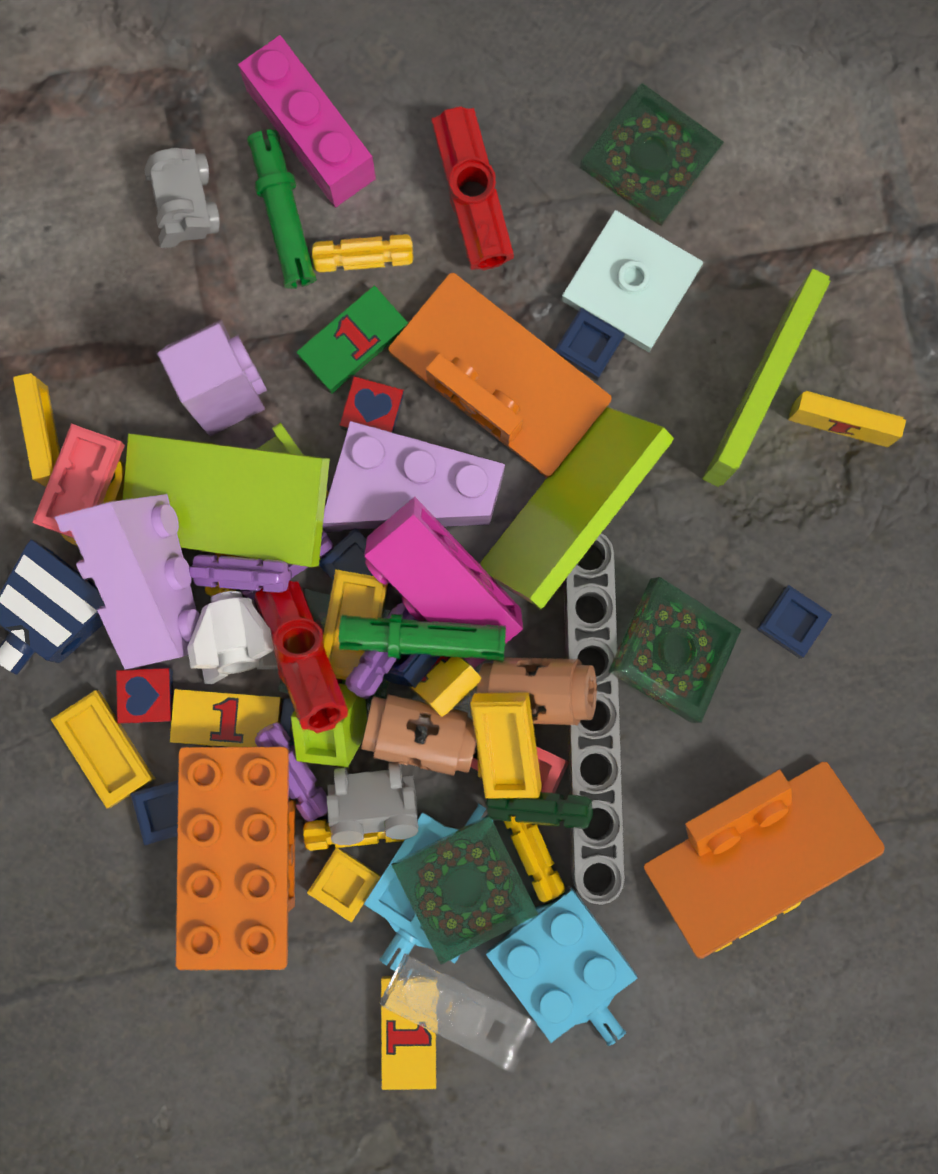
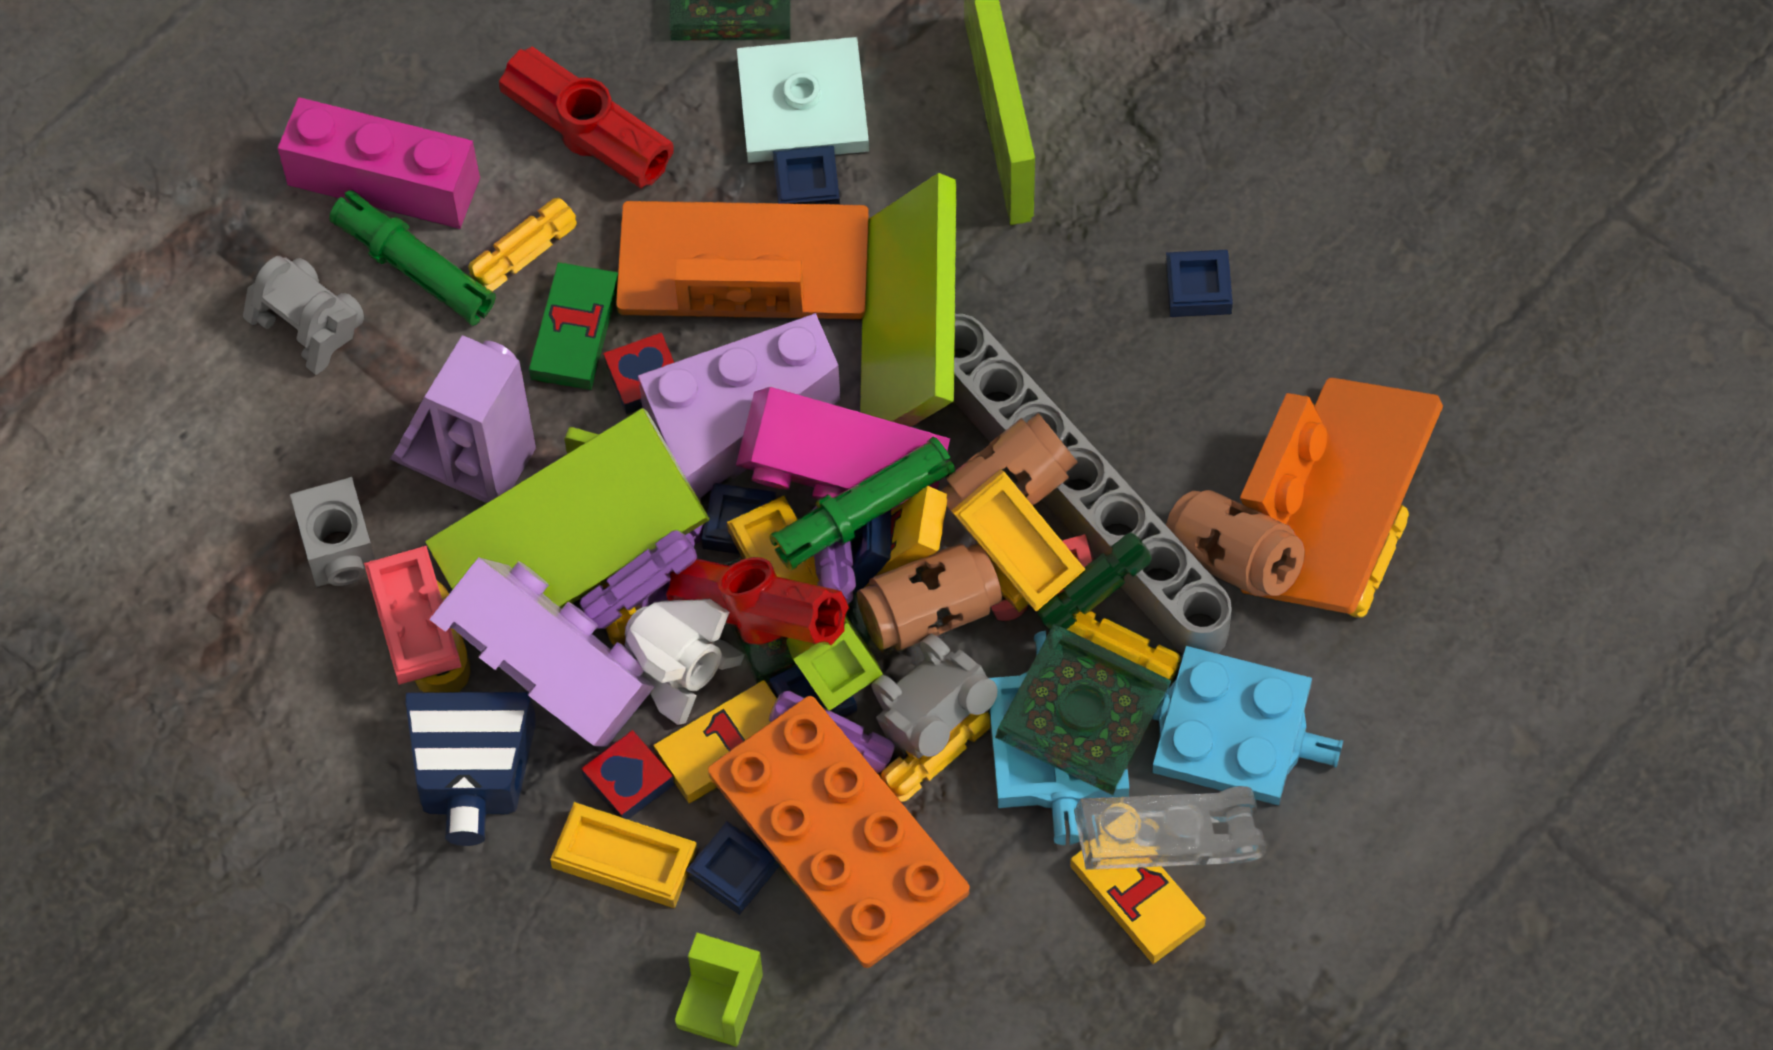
camera: 35 degrees left, 20 degrees down
(37, 426) = (329, 605): yellow tile -> none
(69, 360) = (331, 510): none -> light grey brick
(88, 894) = (719, 989): none -> lime panel
(344, 884) = (964, 807): yellow tile -> none
(667, 871) = (1238, 542): none -> nougat piece
(675, 650) = (1107, 371): clear green tile -> none
(847, 419) = (1100, 77): yellow tile -> none

